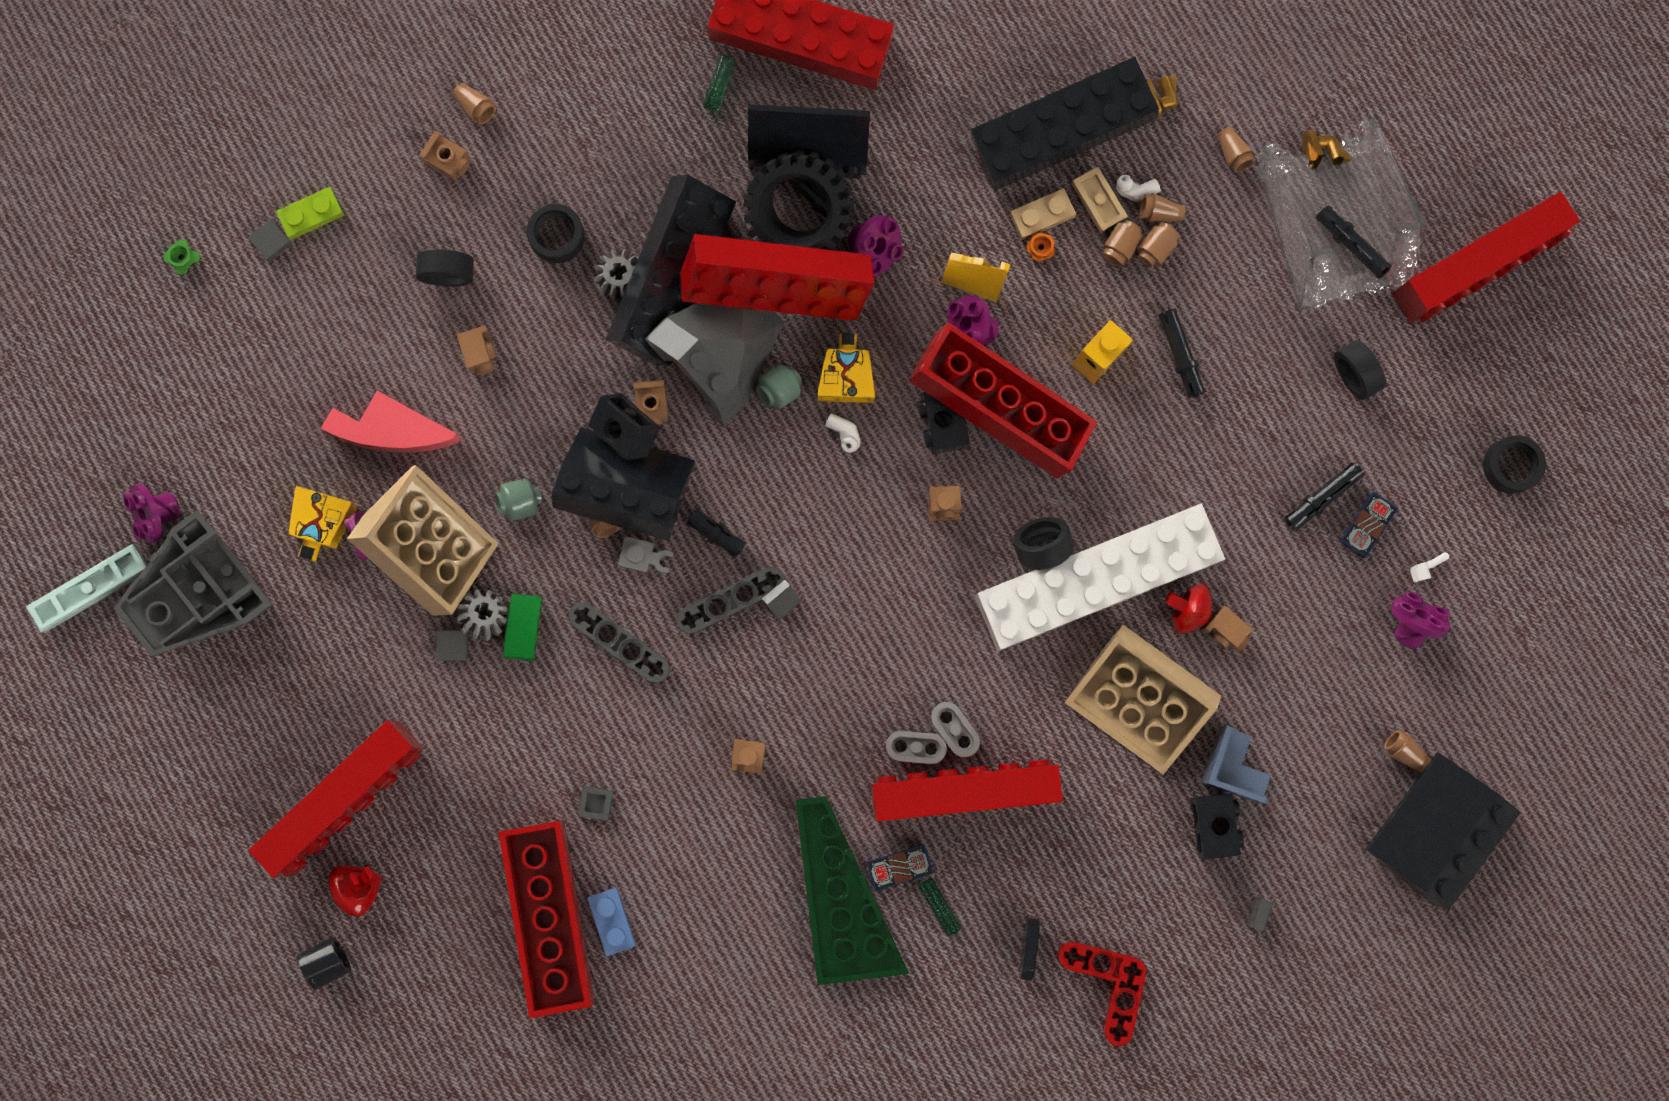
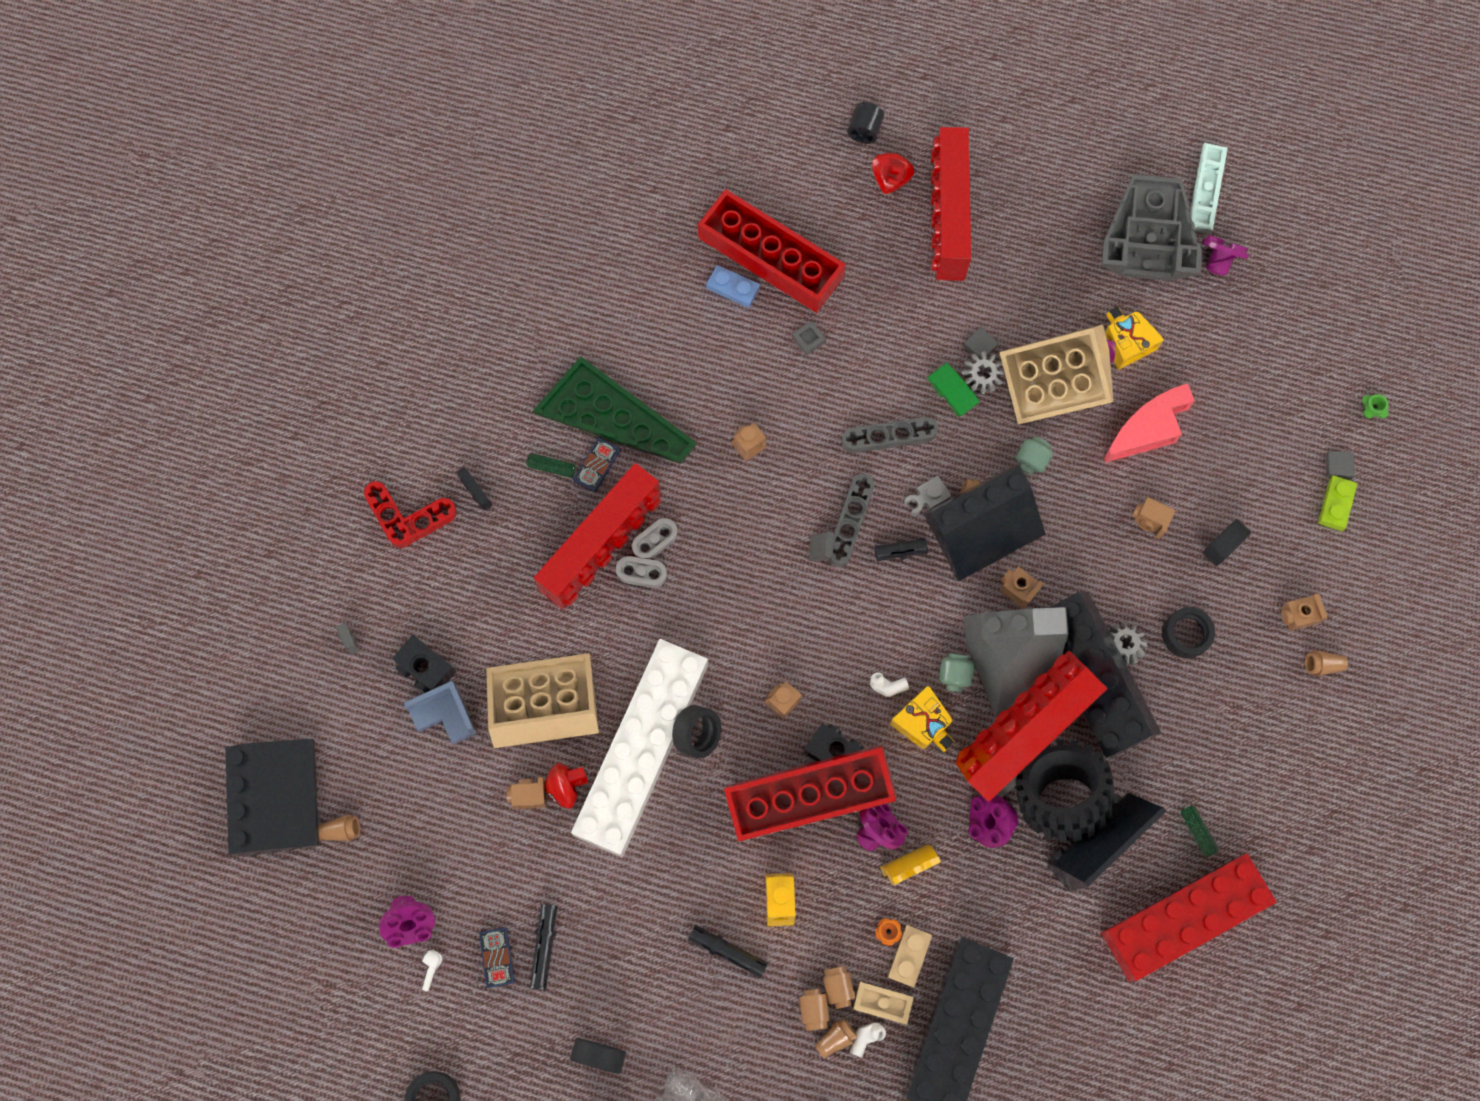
camera: 140 degrees right, 10 degrees down
(623, 426) = (1021, 552): black brick -> none

